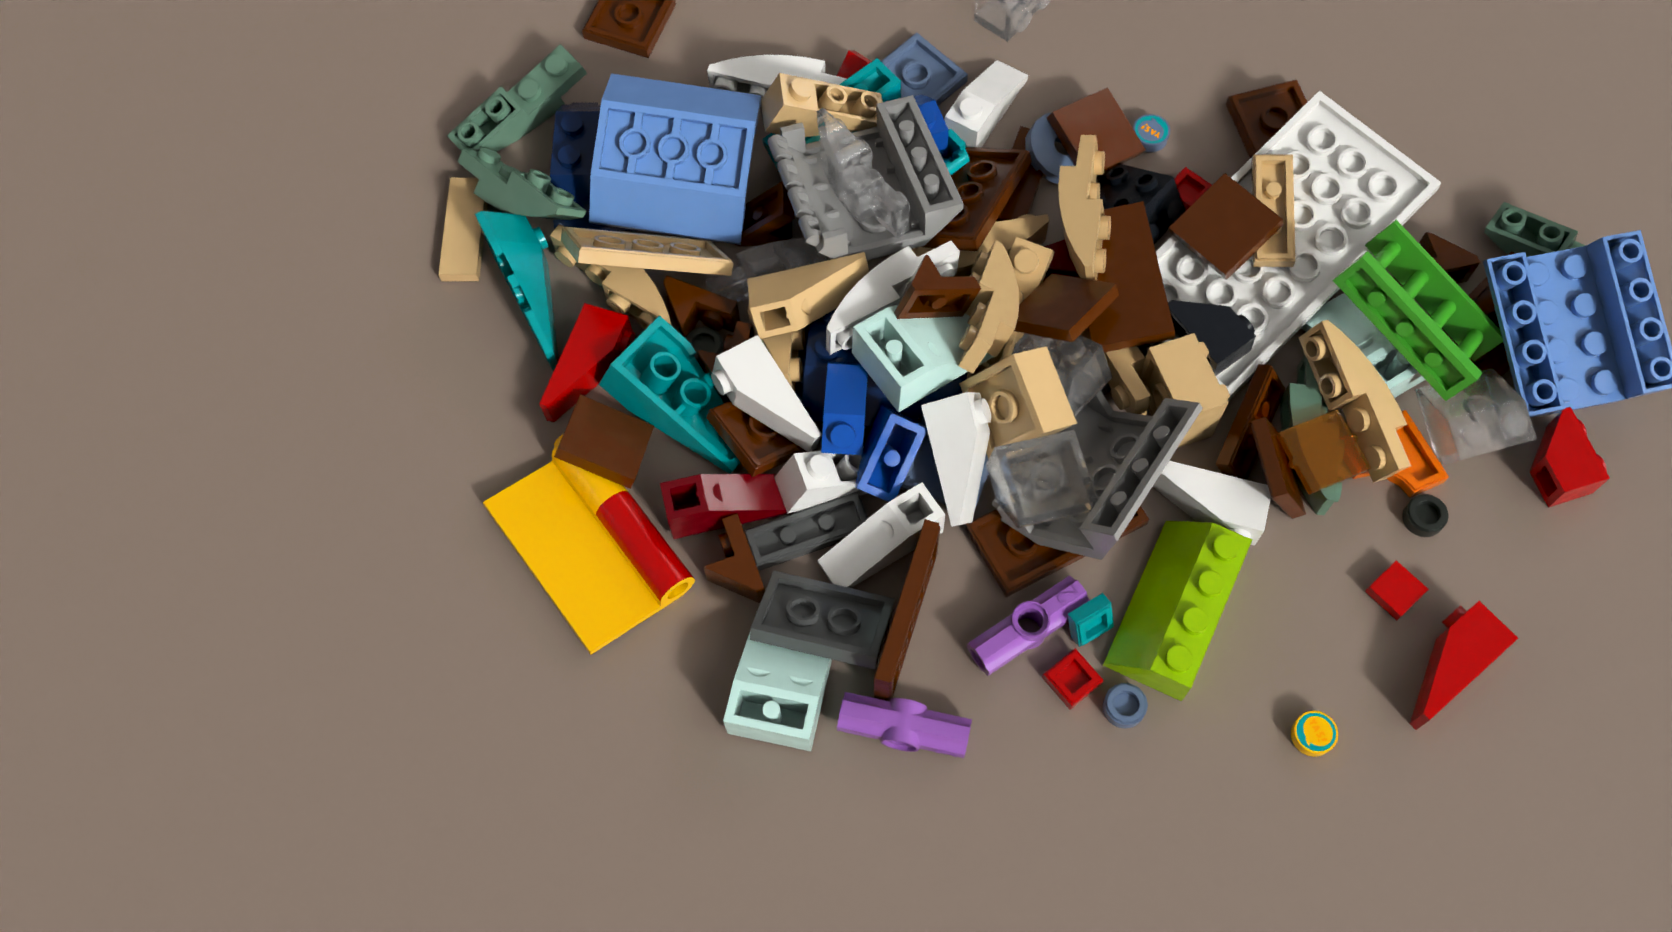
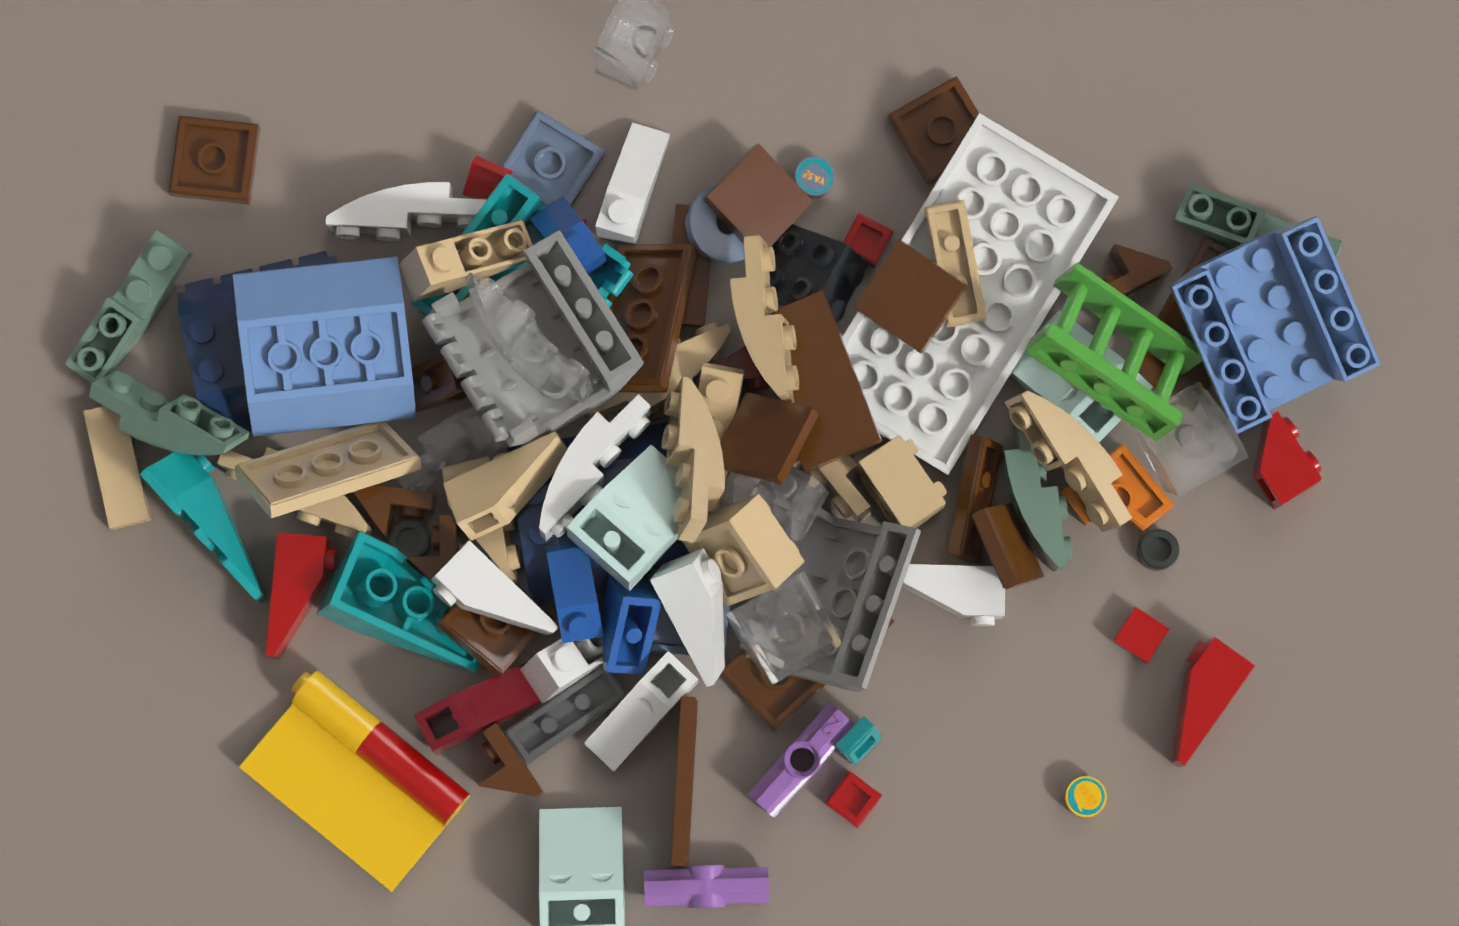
camera: 20 degrees left, 15 degrees up
(604, 441) = (343, 677): reddish brown tile -> none
(822, 619) = (605, 807): dark grey plate -> none
(936, 296) = (632, 470): reddish brown slope -> none
(1125, 705) = (907, 813): sand blue tile -> none
(1177, 605) = (936, 704): lime slope -> none
(1218, 326) = (919, 417): black slope -> none
(1323, 451) = (1047, 520): clear orange piece -> none

